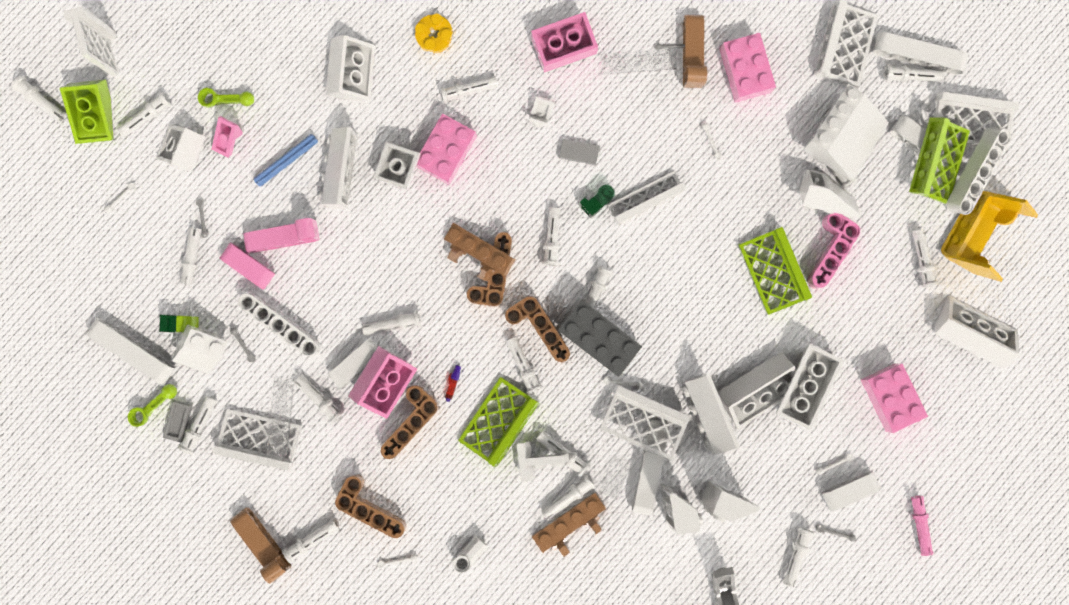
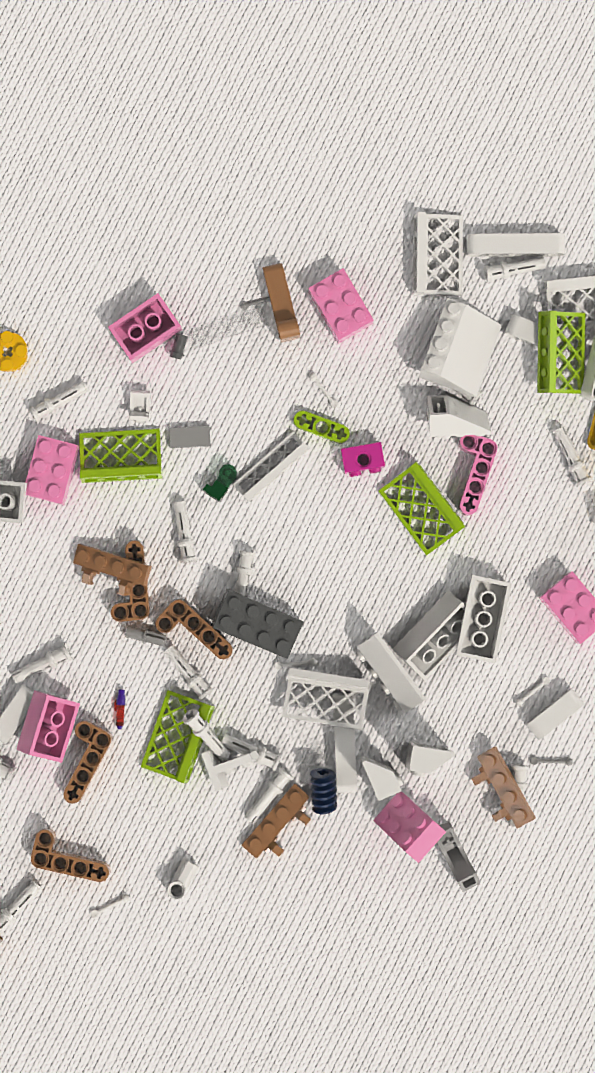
camera: 15 degrees left, 0 degrees up
(493, 322) = (145, 636): none -> light grey axle
(507, 168) = (117, 472): none -> lime fence
(523, 421) = (201, 729): none -> white pin
(590, 67) = (178, 346): none -> dark grey pin
(621, 507) = (324, 790): none -> dark blue piece
(692, 161) = (309, 416): none -> lime beam
(694, 563) = (409, 826): none -> bright pink brick
(743, 208) = (372, 451): none -> dark pink brick
(793, 563) = (513, 801): none -> medium nougat hinge

